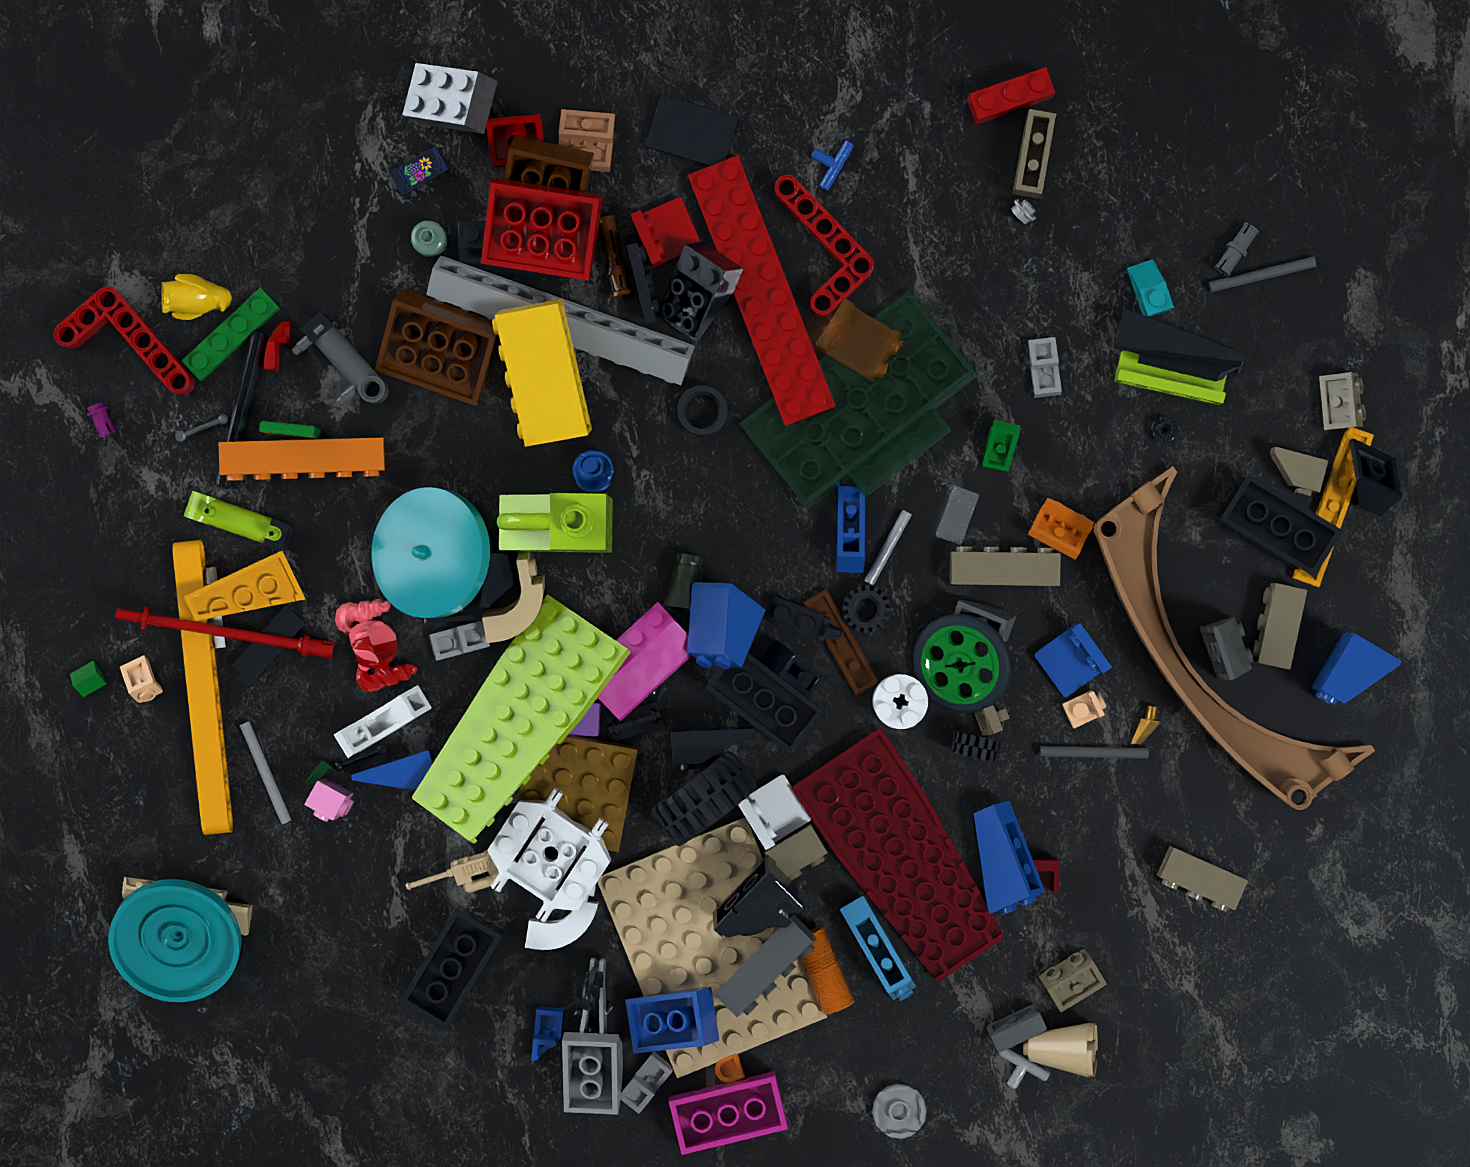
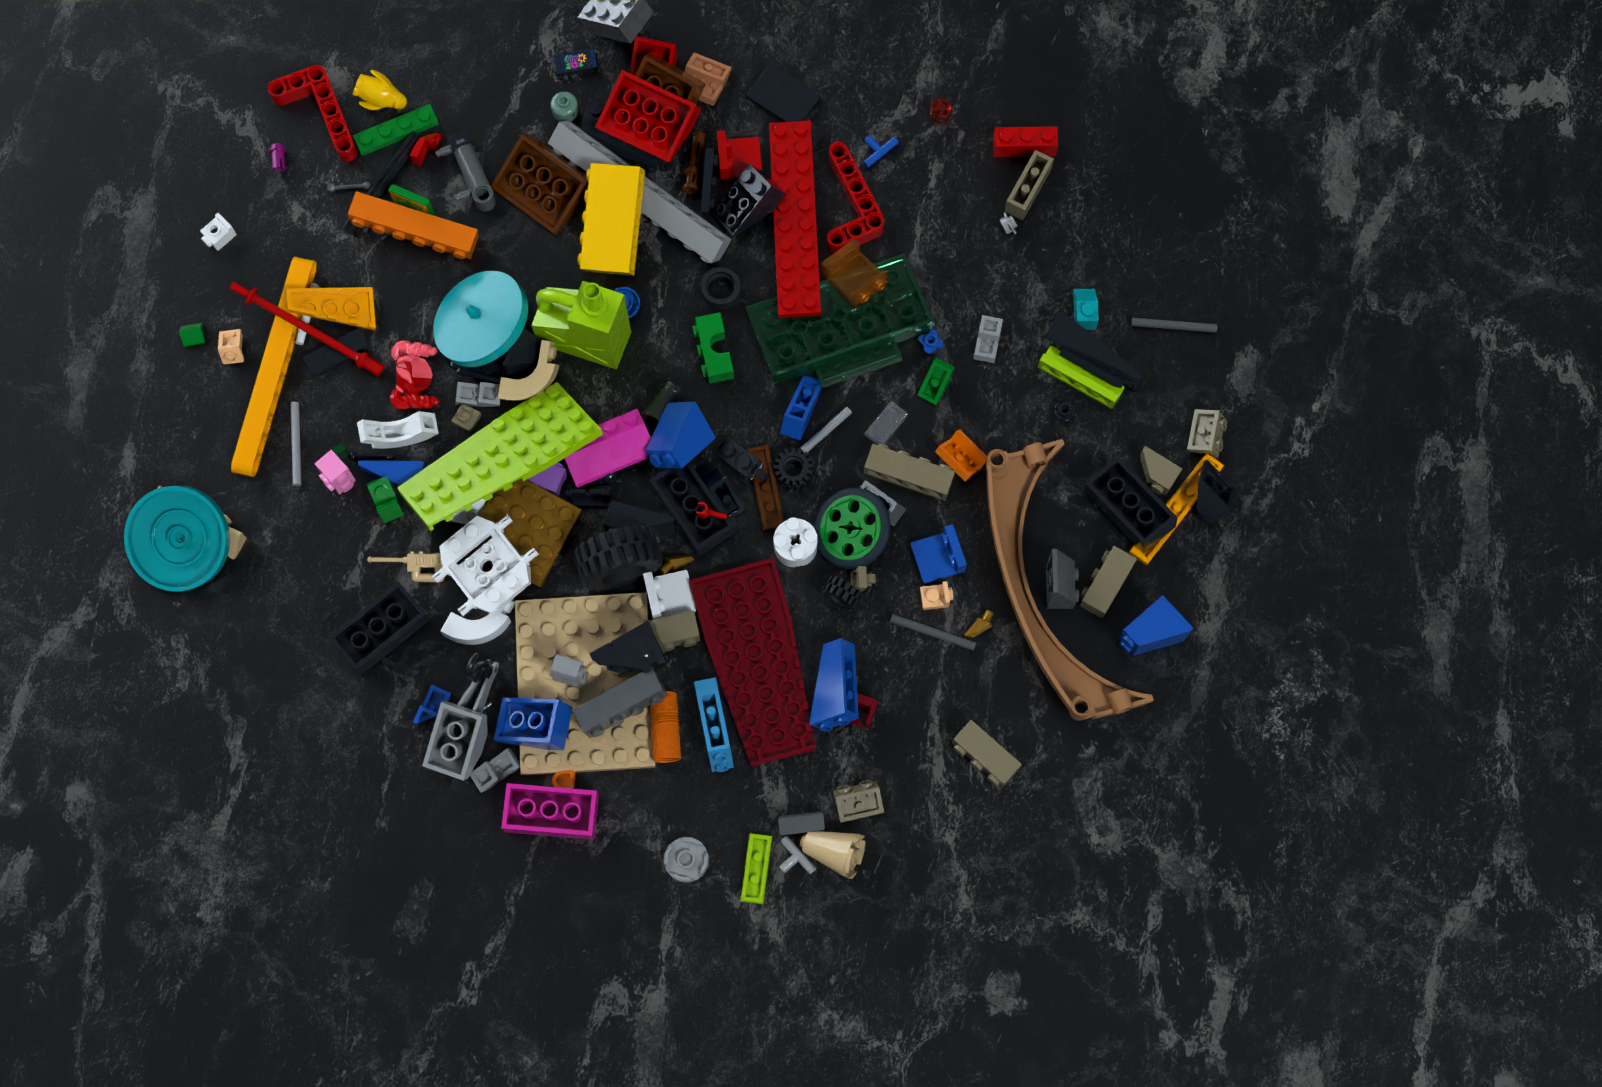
camera: 20 degrees right, 15 degrees down
(76, 539) = (217, 232): none -> white brick
(238, 520) = (330, 243): lime piece -> none
(399, 810) = (385, 499): none -> green slope
(455, 674) = (466, 418): none -> dark tan tile
(694, 950) = (569, 671): none -> light grey brick
(730, 512) = (717, 365): none -> green arch
(766, 768) = (674, 563): none -> pearl gold bar
(789, 705) = (708, 512): none -> red hand
(892, 82) = (944, 107): none -> clear red wheel
(969, 394) = (930, 347): none -> blue plate
(982, 1094) = (756, 868): none -> lime tile
(1236, 249) = (1159, 300): dark grey pin -> none

